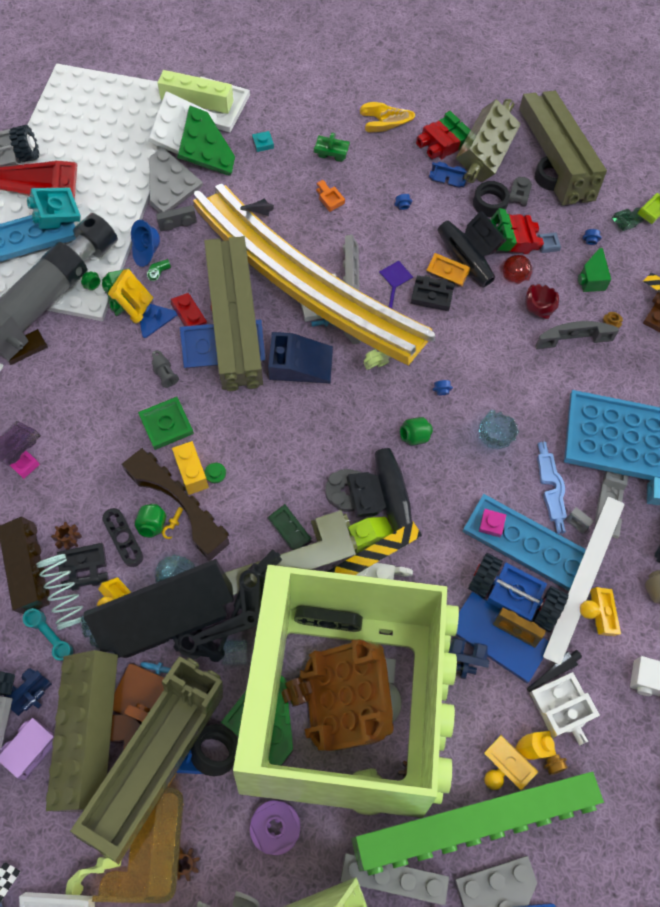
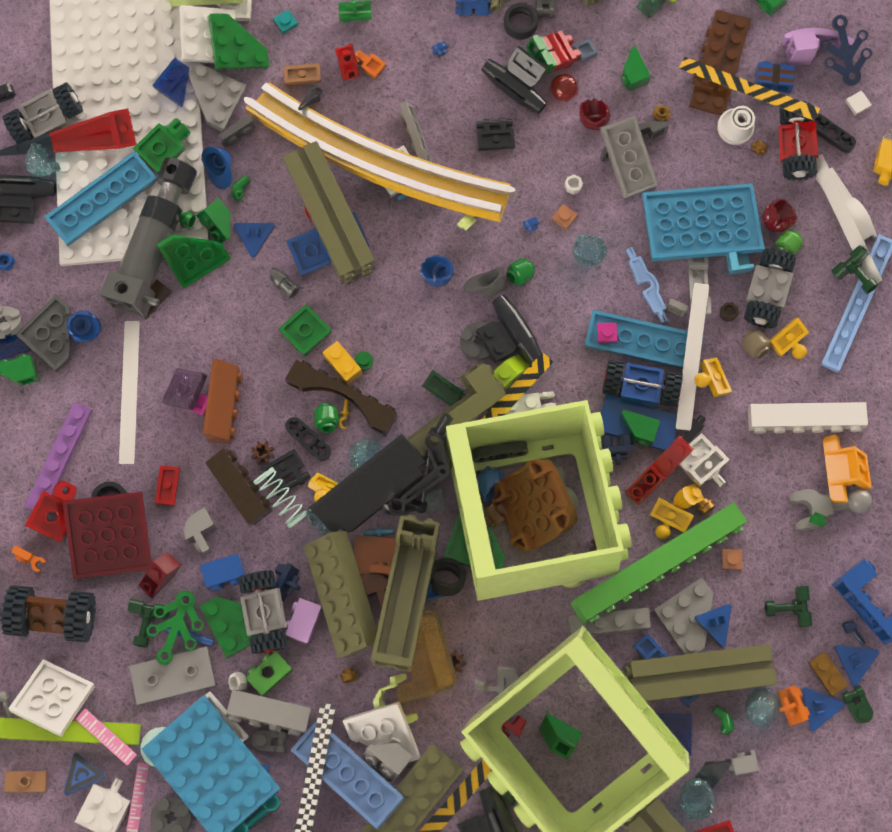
camera: 15 degrees left, 10 degrees up
(36, 619) = (266, 526): teal bar -> none
(43, 468) = (222, 401): none -> dark orange slope
(52, 207) = (126, 160): teal plate -> none
(53, 836) = (349, 675): none -> pearl gold plate
(77, 315) = (192, 257): none -> green plate
(102, 202) = (163, 143): none -> green plate
(133, 158) = (173, 82): none -> clear blue wing
(134, 292) = (229, 217): yellow plate -> none
(188, 310) = (284, 221): red plate -> none
(260, 187) = (302, 74): none -> medium nougat plate
(289, 833) = (499, 617): medium lavender plate -> none
(299, 359) = (400, 236): dark blue slope -> none
(299, 649) = (486, 481): none -> blue hair
(307, 187) = (347, 62): none -> red hips
(326, 403) = (437, 270): none -> blue hair
(377, 434) = (487, 283): none -> dark grey piece
(395, 275) = (456, 126): dark purple piece -> none
(448, 269) = (502, 108): light orange plate -> none
(480, 391) = (564, 216): none -> nougat plate
(499, 361) = (573, 184): none -> white tile
(501, 642) = (642, 428): none -> green slope
(510, 701) = (659, 470): none -> red slope
(519, 627) = (659, 412): pearl gold plate -> none
(567, 349) = (629, 156): none -> light grey plate
(571, 844) = (731, 559): none -> nougat plate
(592, 236) = (623, 33): blue plate -> none
(638, 542) = (729, 311): none -> dark brown tile

